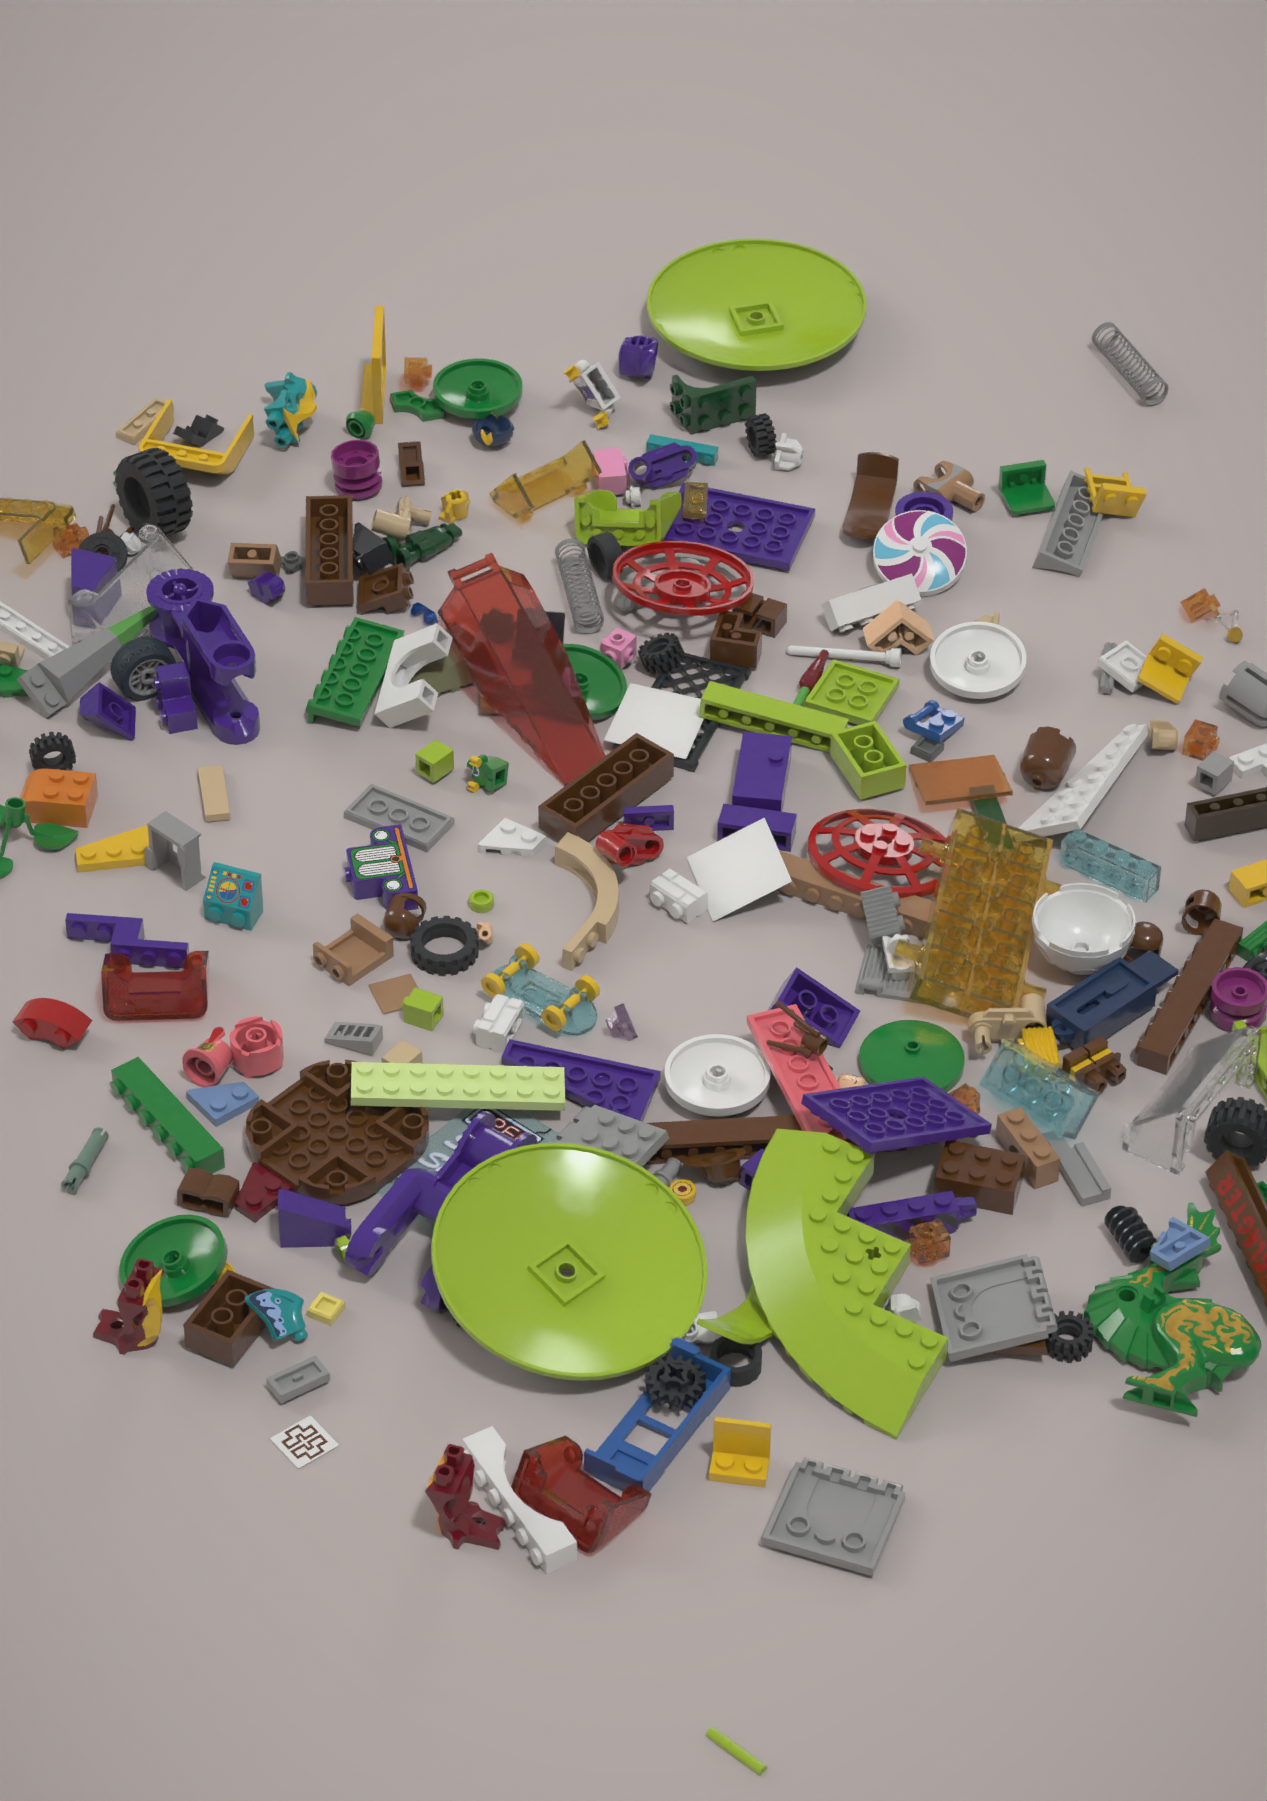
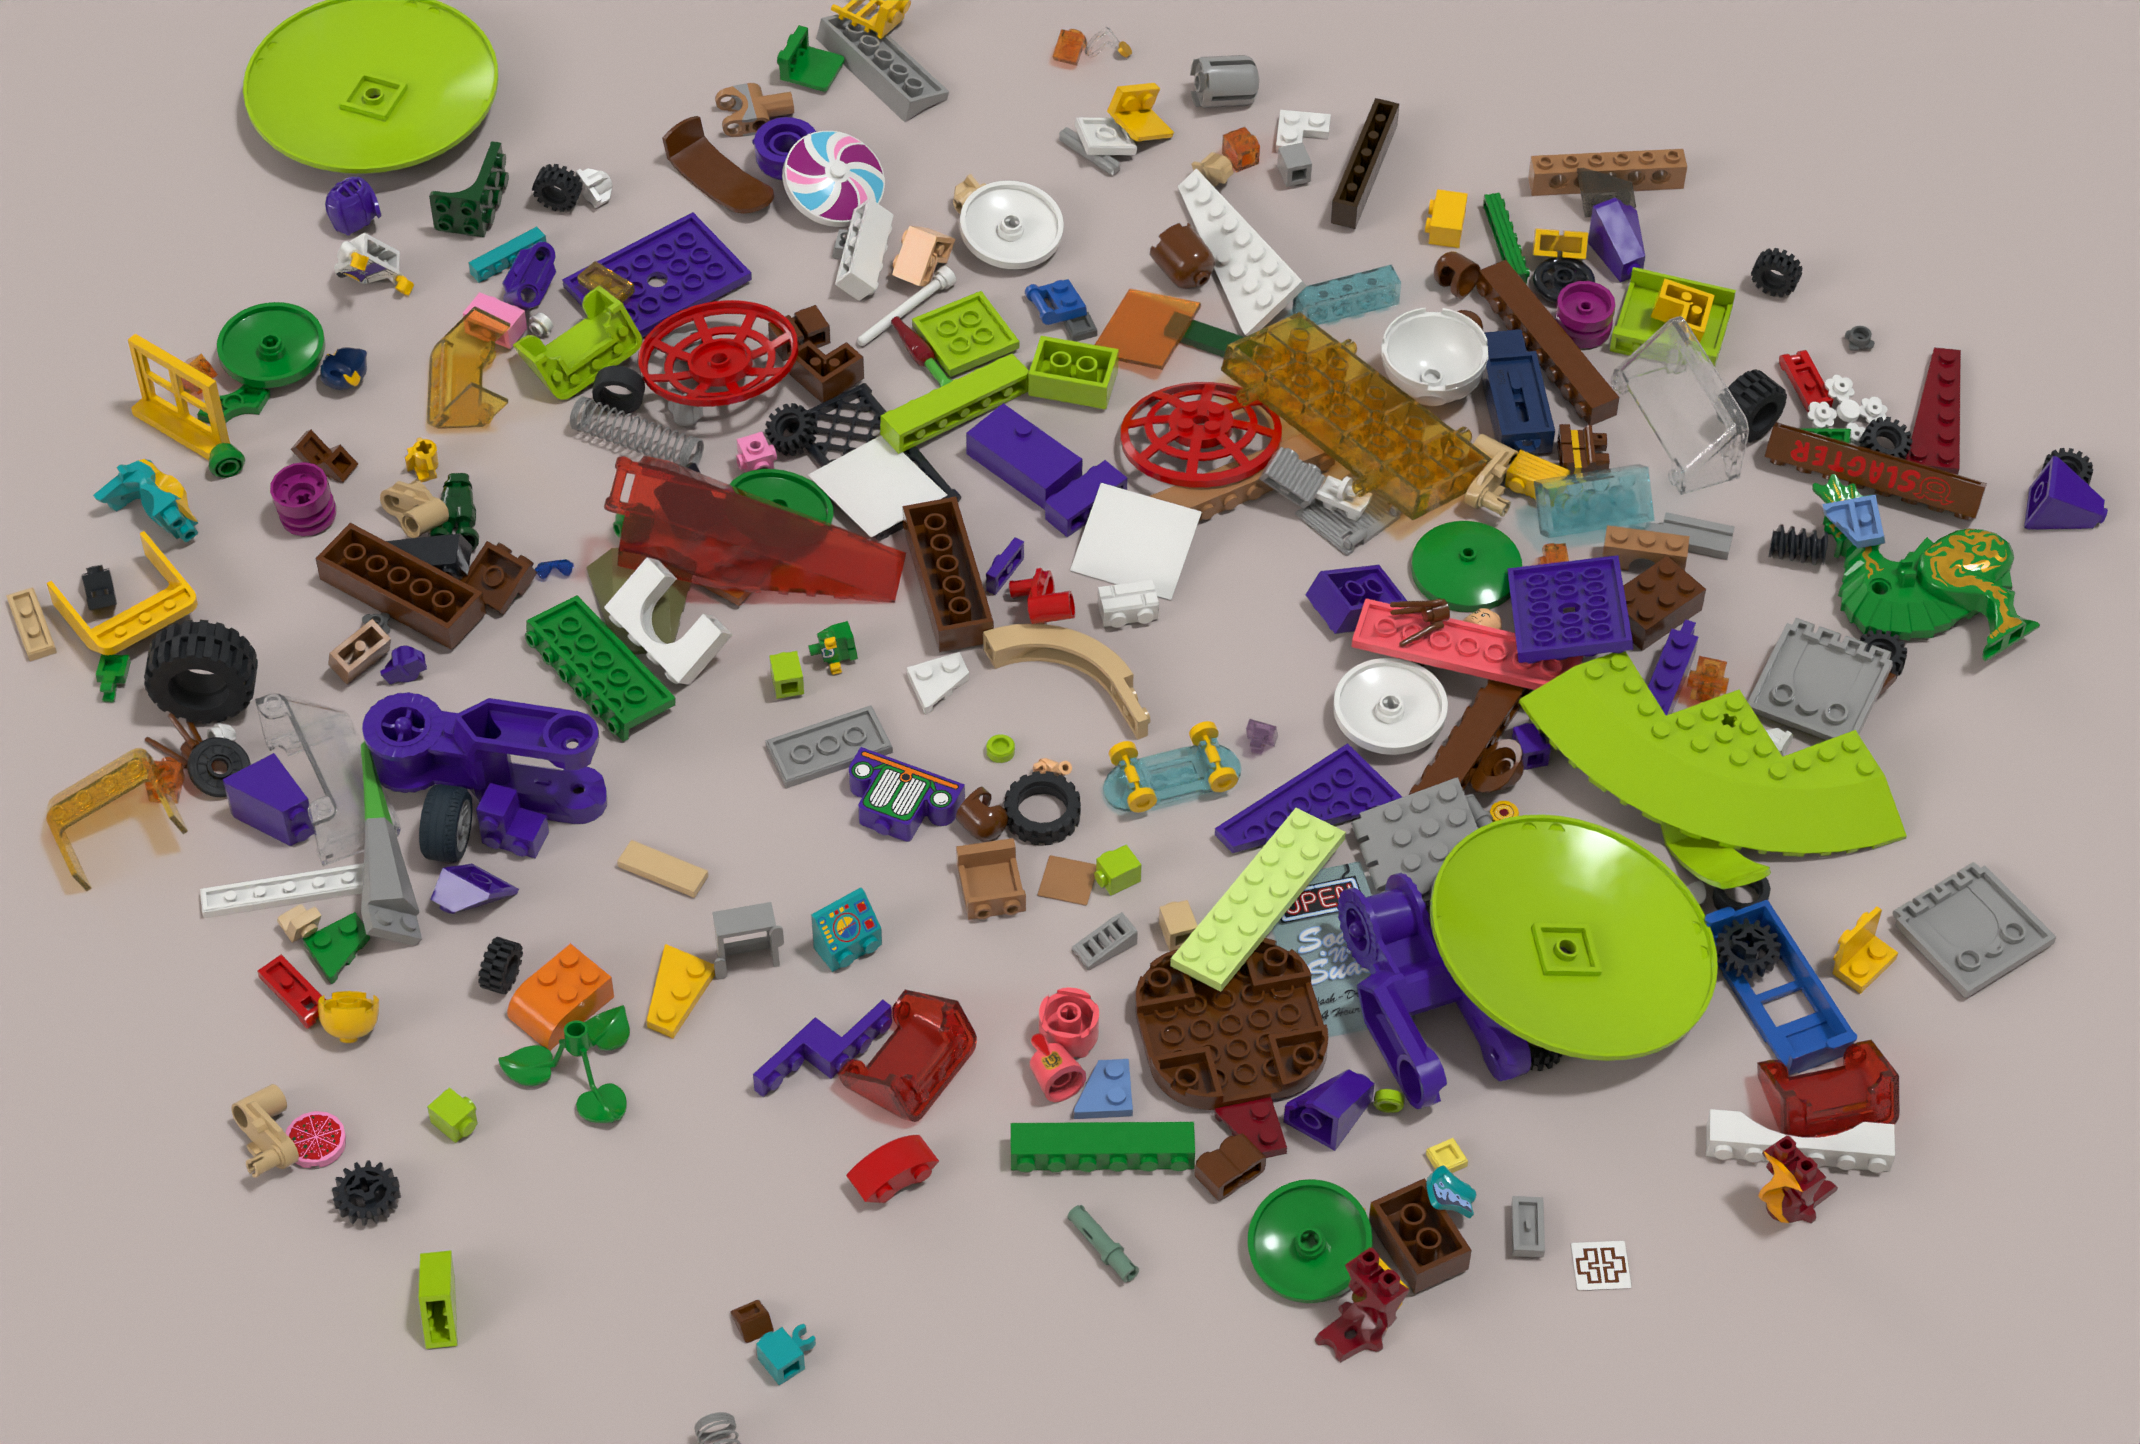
camera: 55 degrees left, 10 degrees up
(499, 1022) = (1185, 824): white brick -> none

